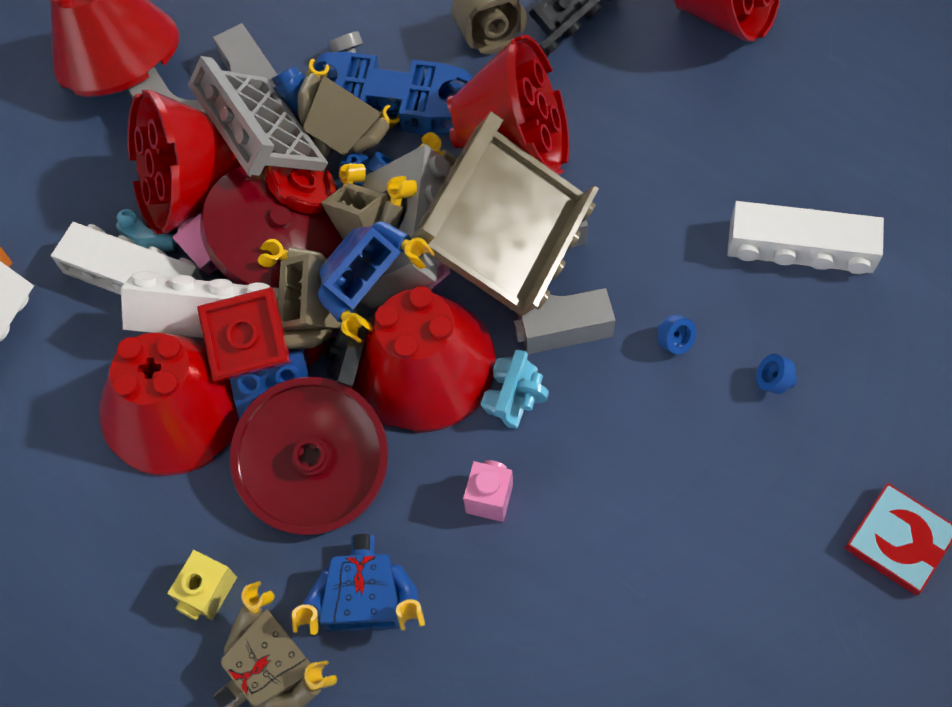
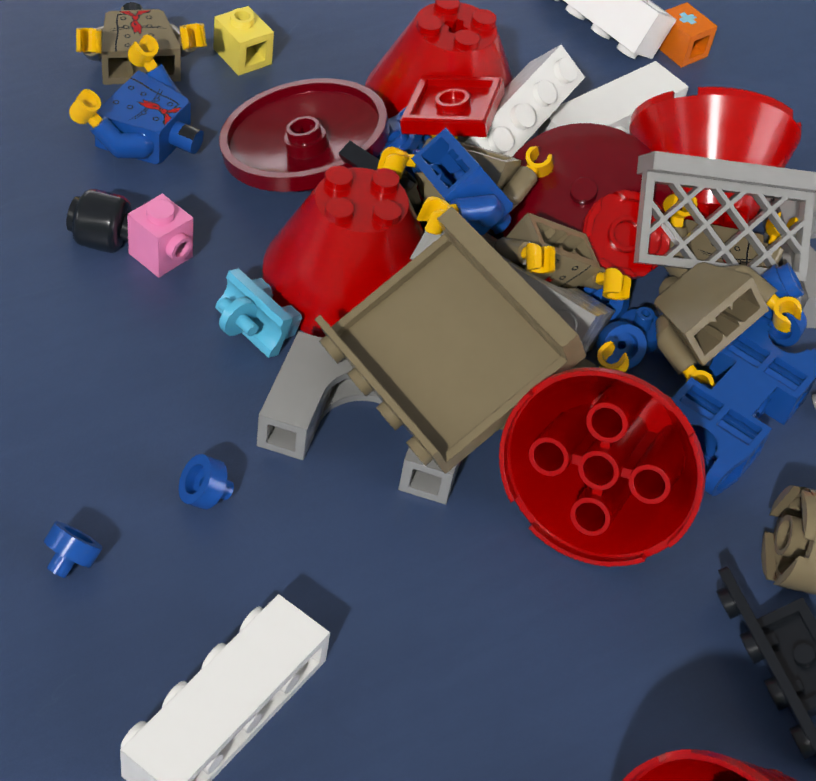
camera: 105 degrees right, 15 degrees down
(497, 547) = (99, 220): none -> black head

